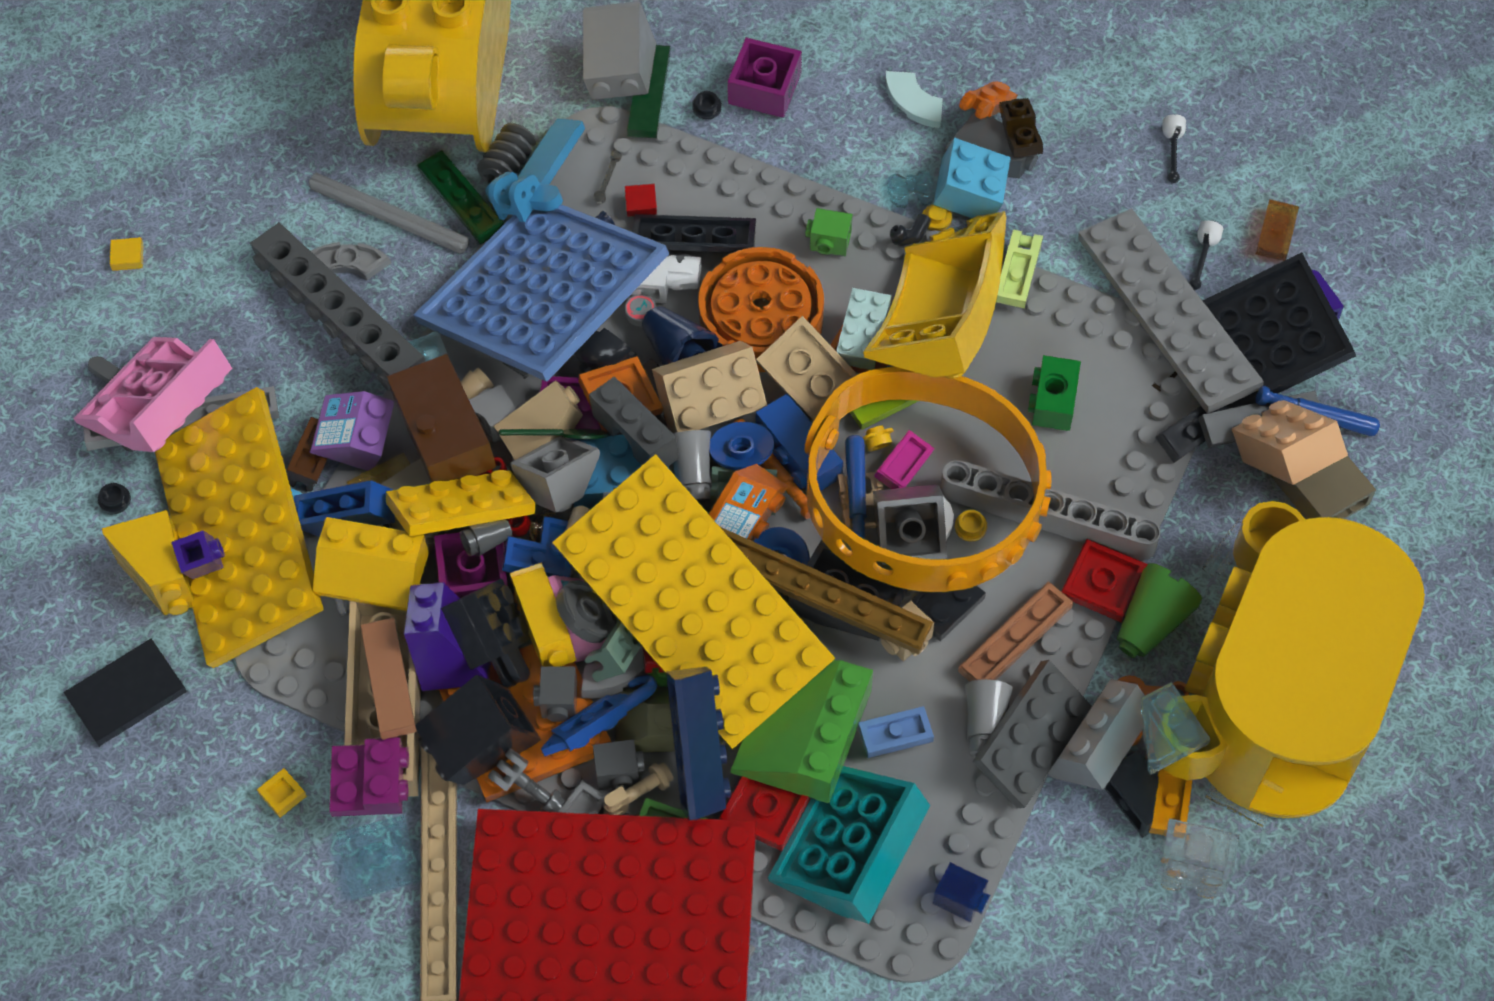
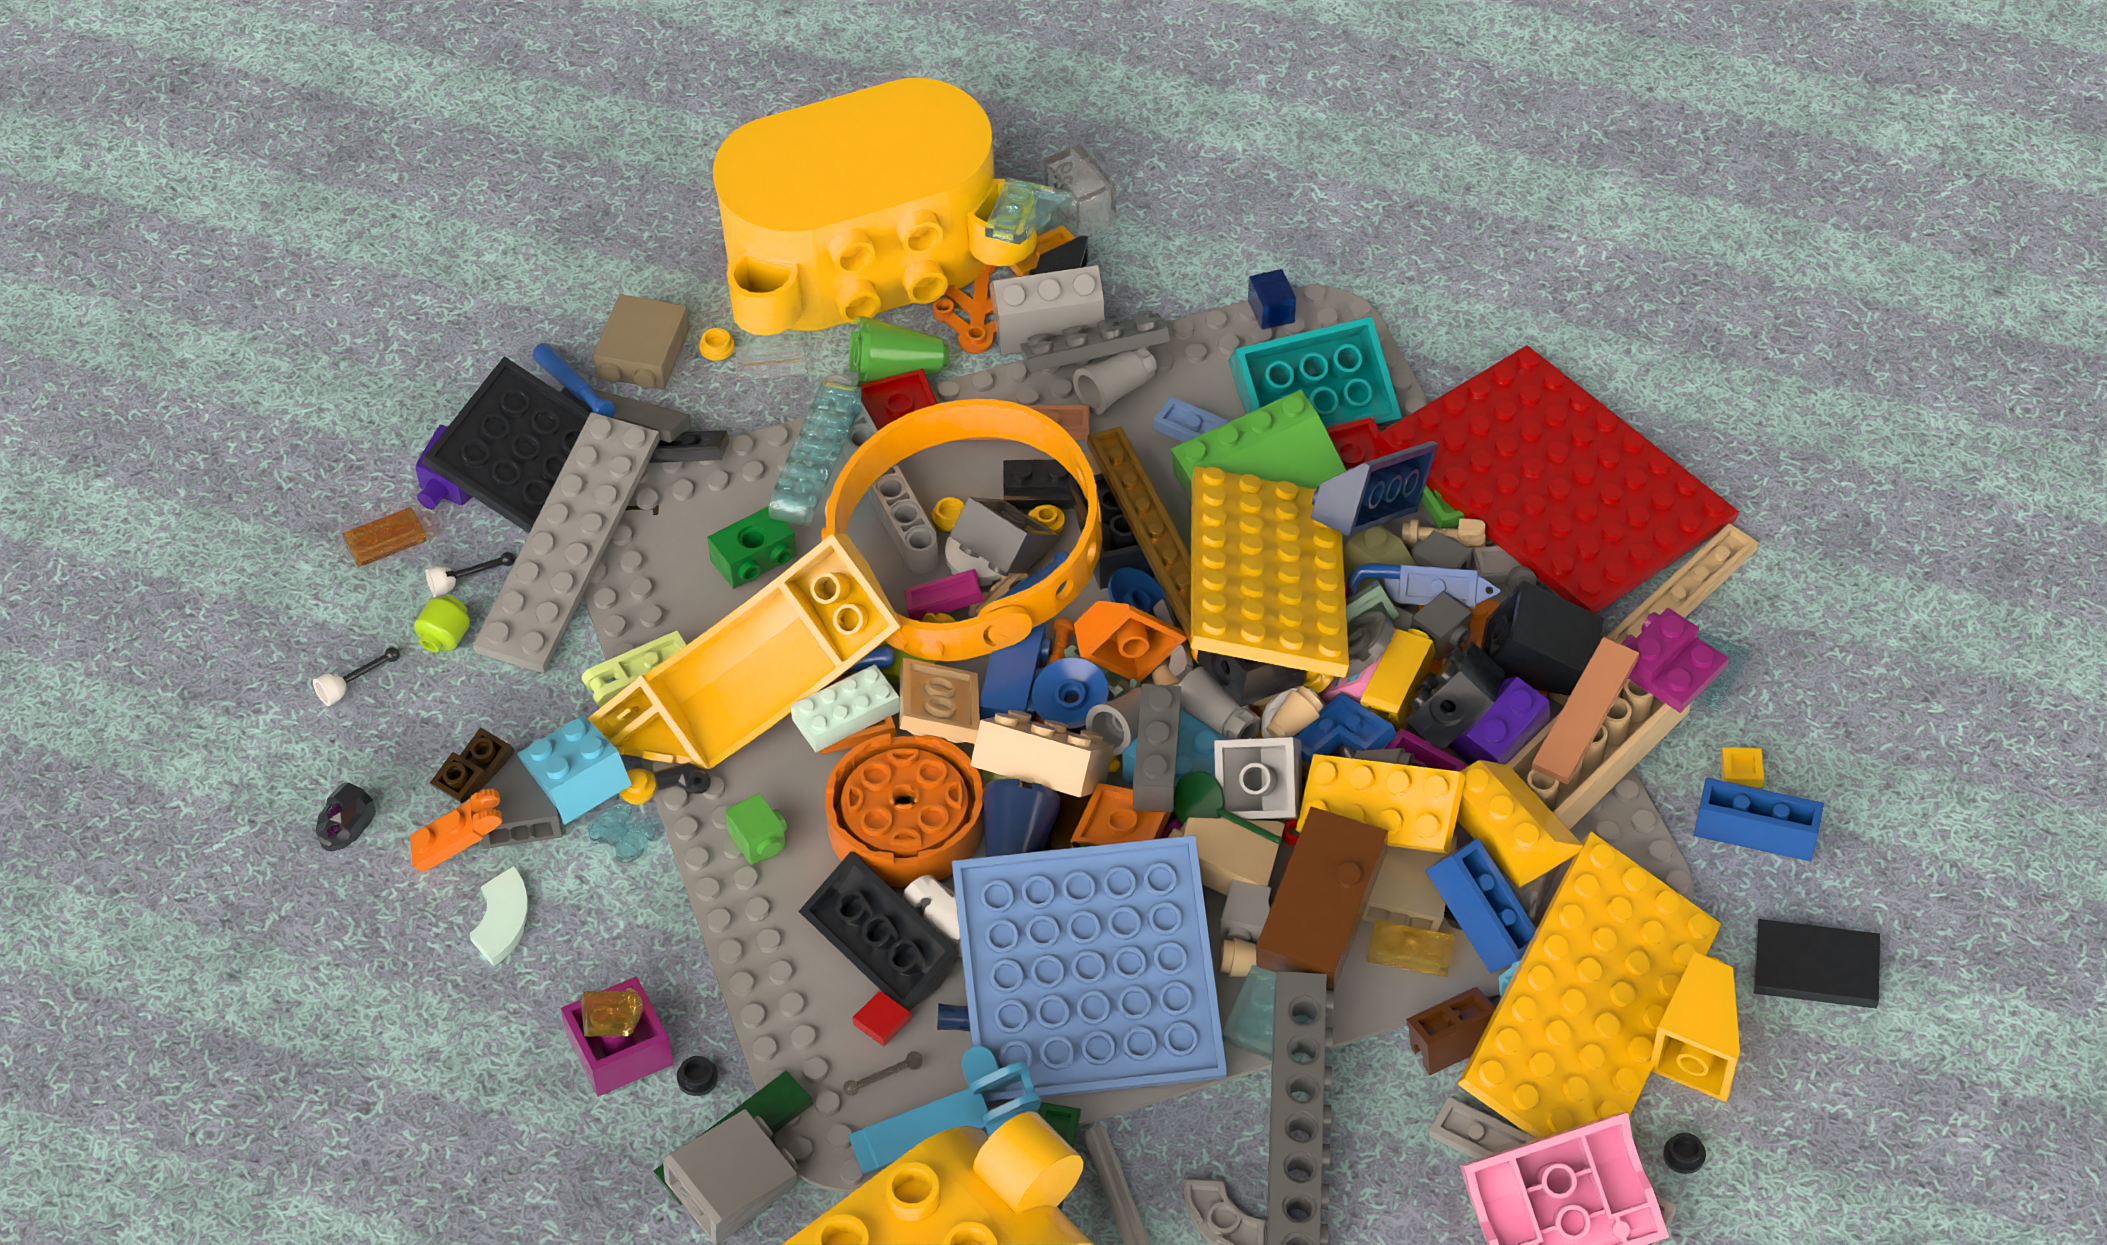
camera: 135 degrees left, 10 degrees down
(198, 554) = (1659, 969): dark purple brick -> none
(233, 747) = (1758, 819): none -> blue brick
(353, 428) = (1398, 993): medium lavender slope -> none
(765, 56) = (610, 1012): none -> clear yellow plate
(1063, 73) = (344, 817): none -> black rock
(1086, 460) = (815, 453): none -> clear light blue beam
(1165, 204) = (442, 624): none -> lime head
(1289, 441) = (645, 347): light nougat piece -> none

